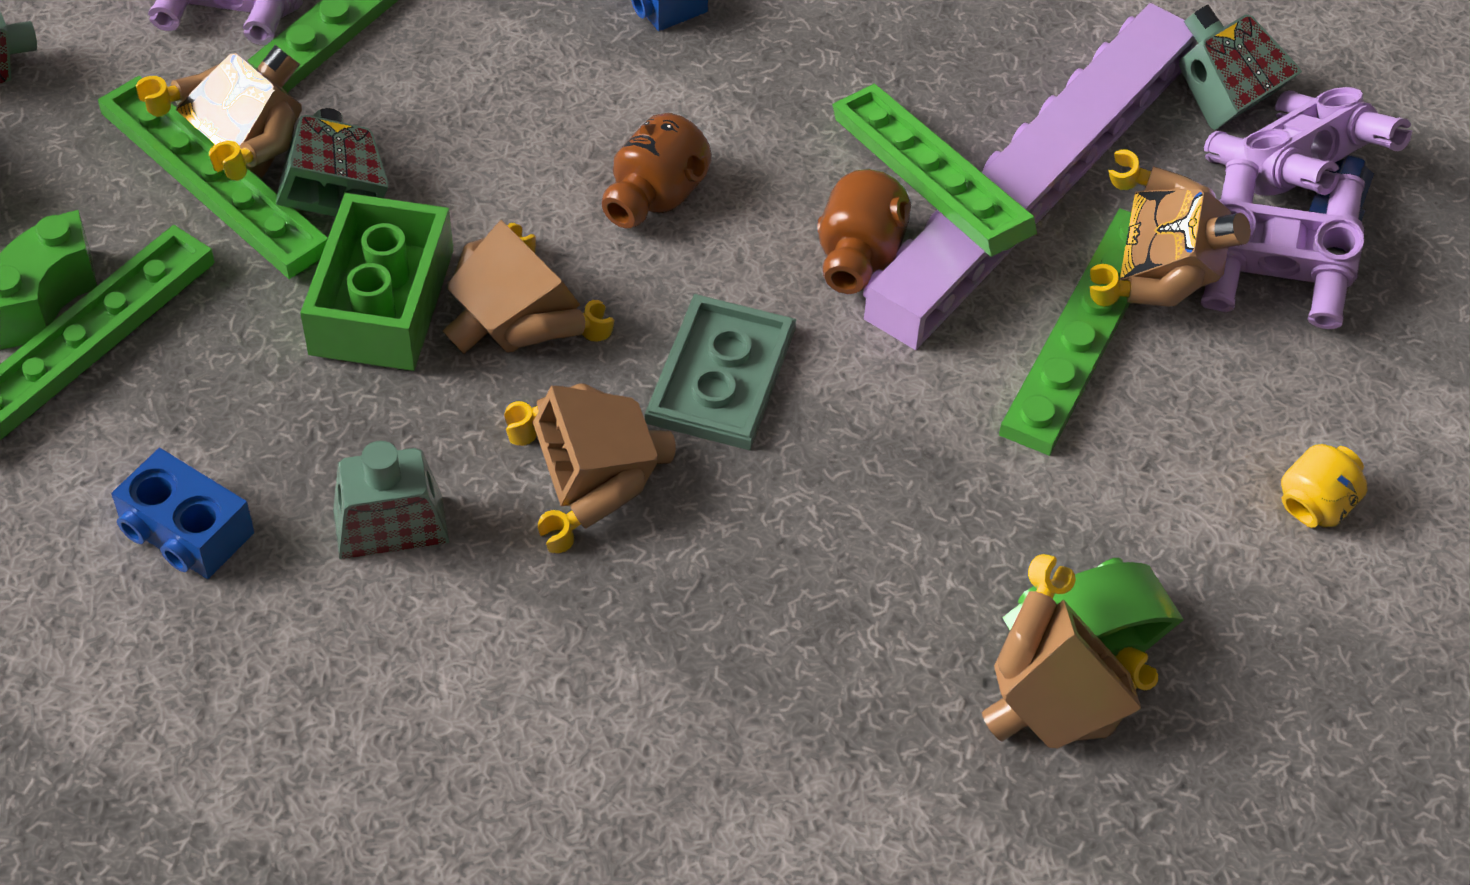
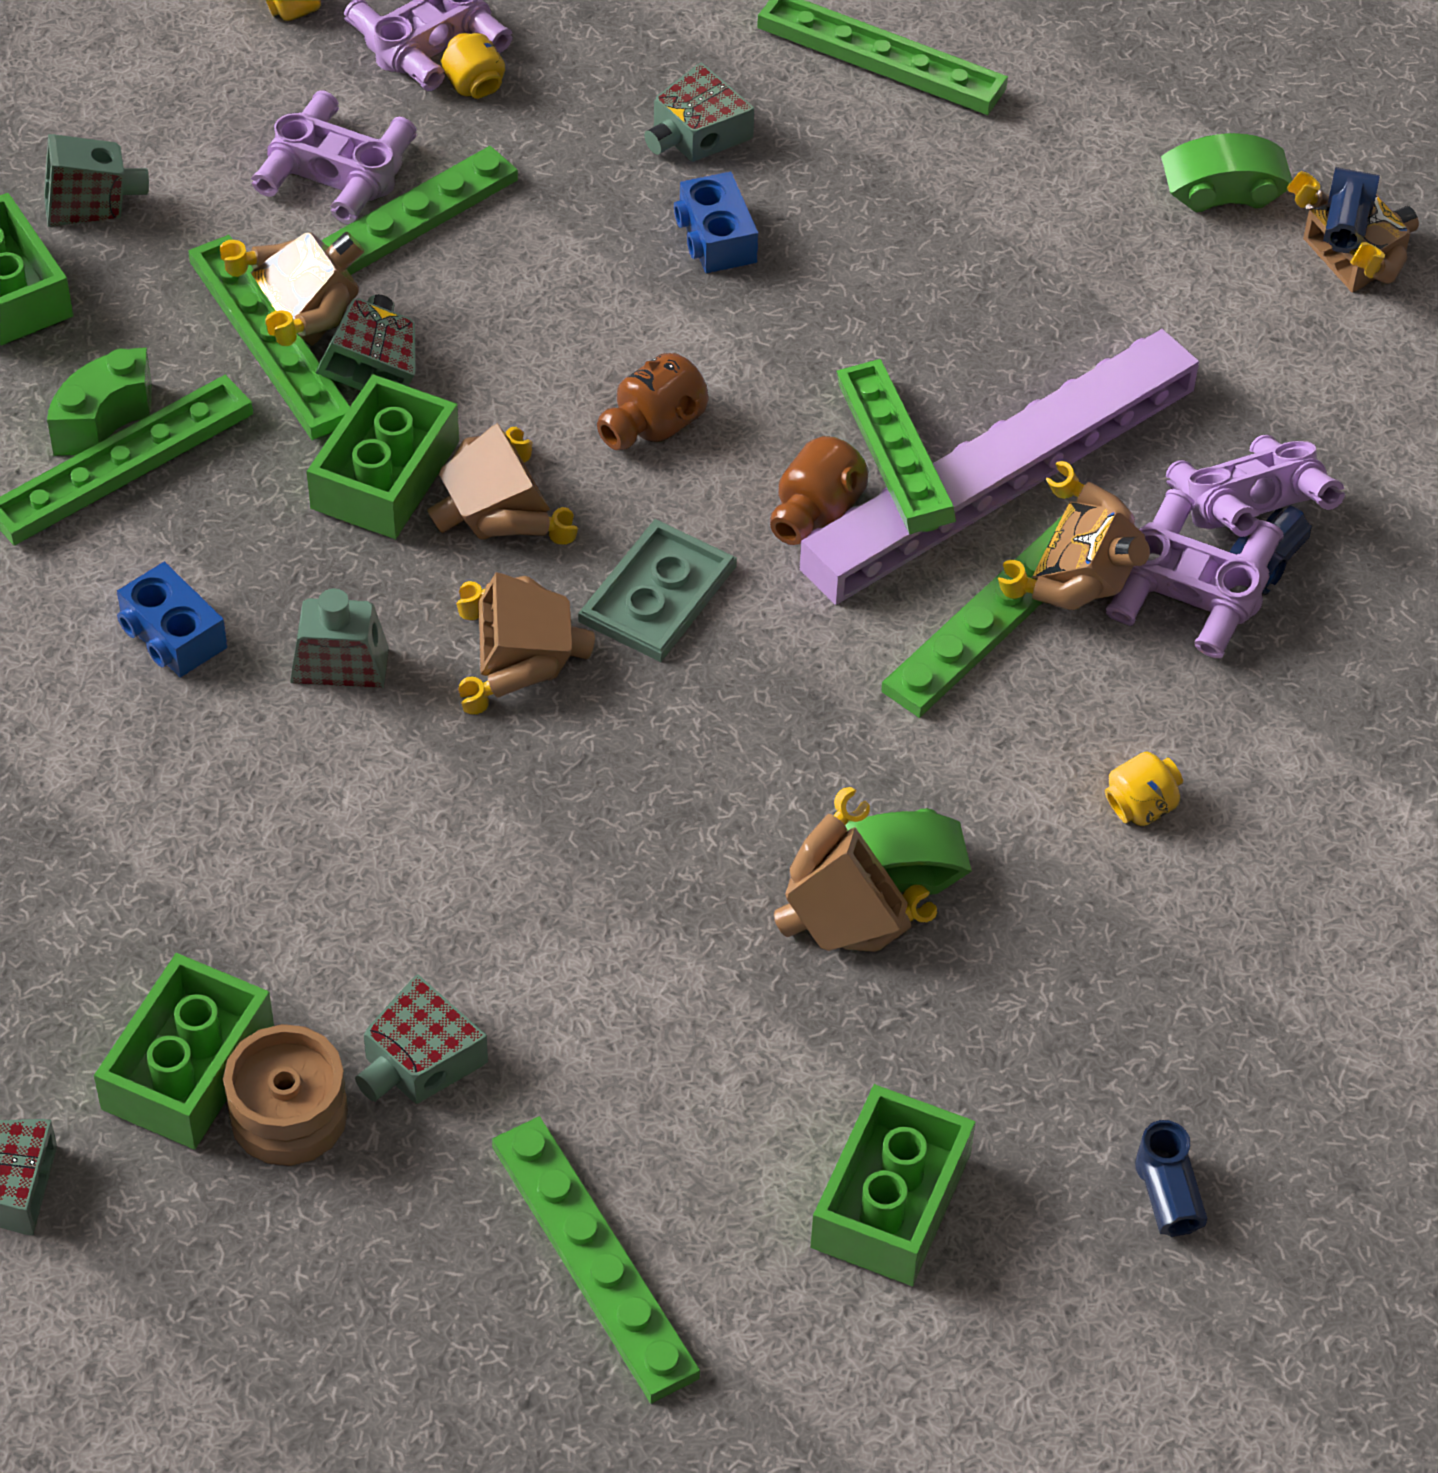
camera: 15 degrees right, 0 degrees up
(1233, 65) = (1218, 402): sand green torso -> none

